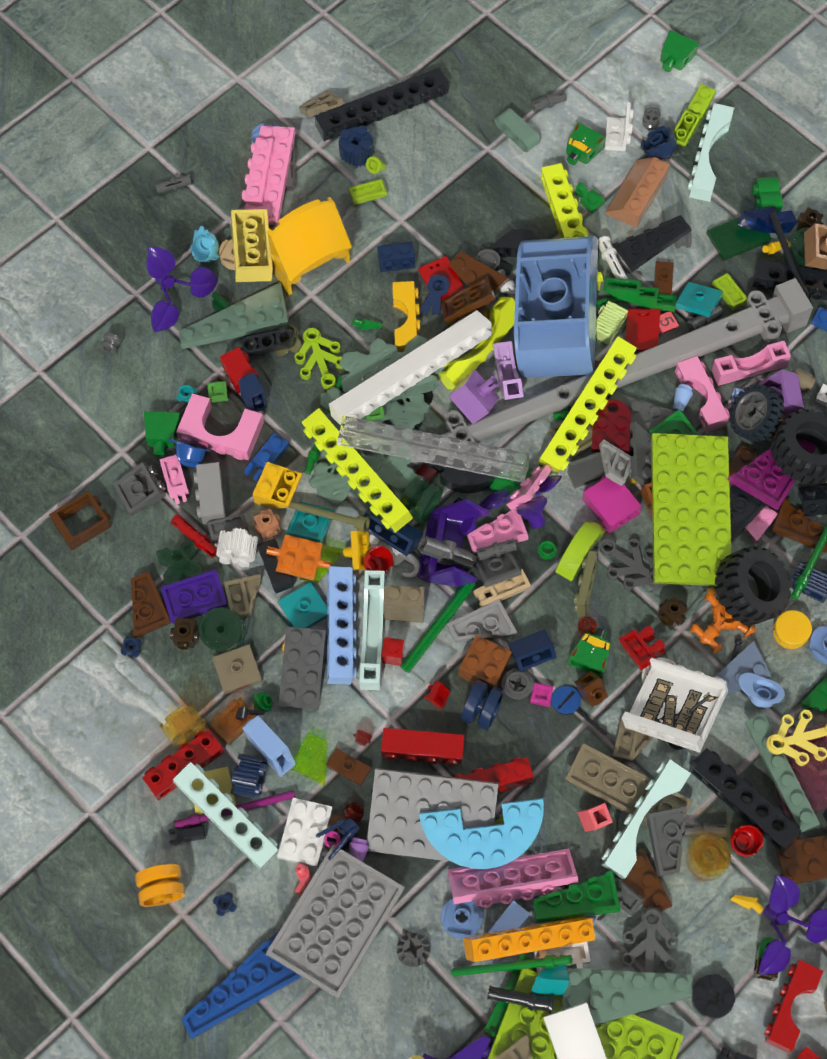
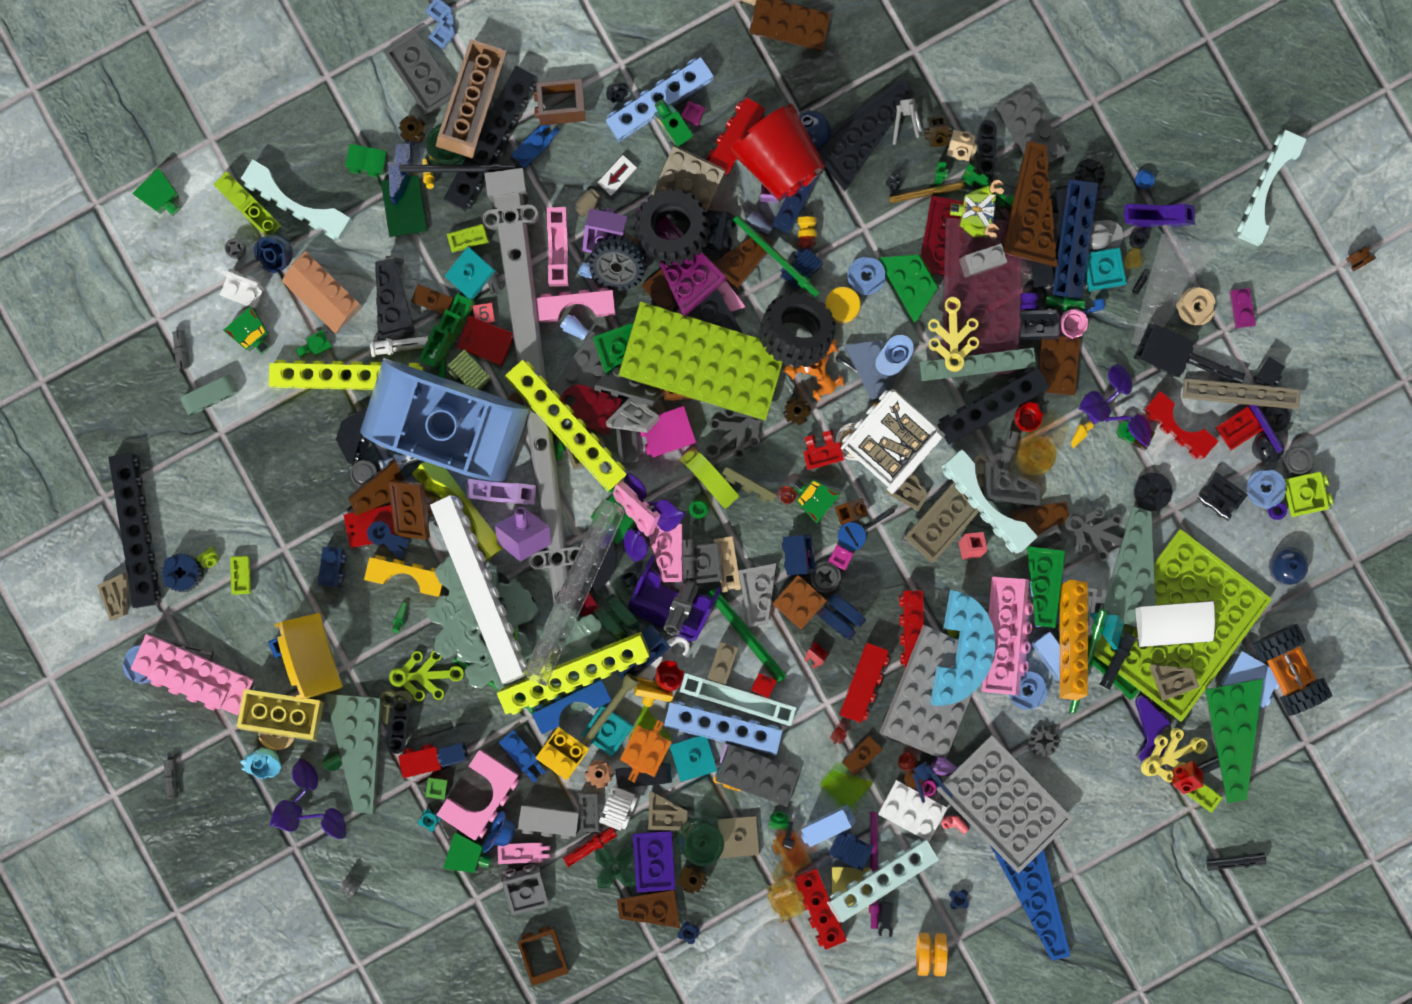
camera: 75 degrees left, 20 degrees up
(310, 465) = (548, 715): none -> blue arch

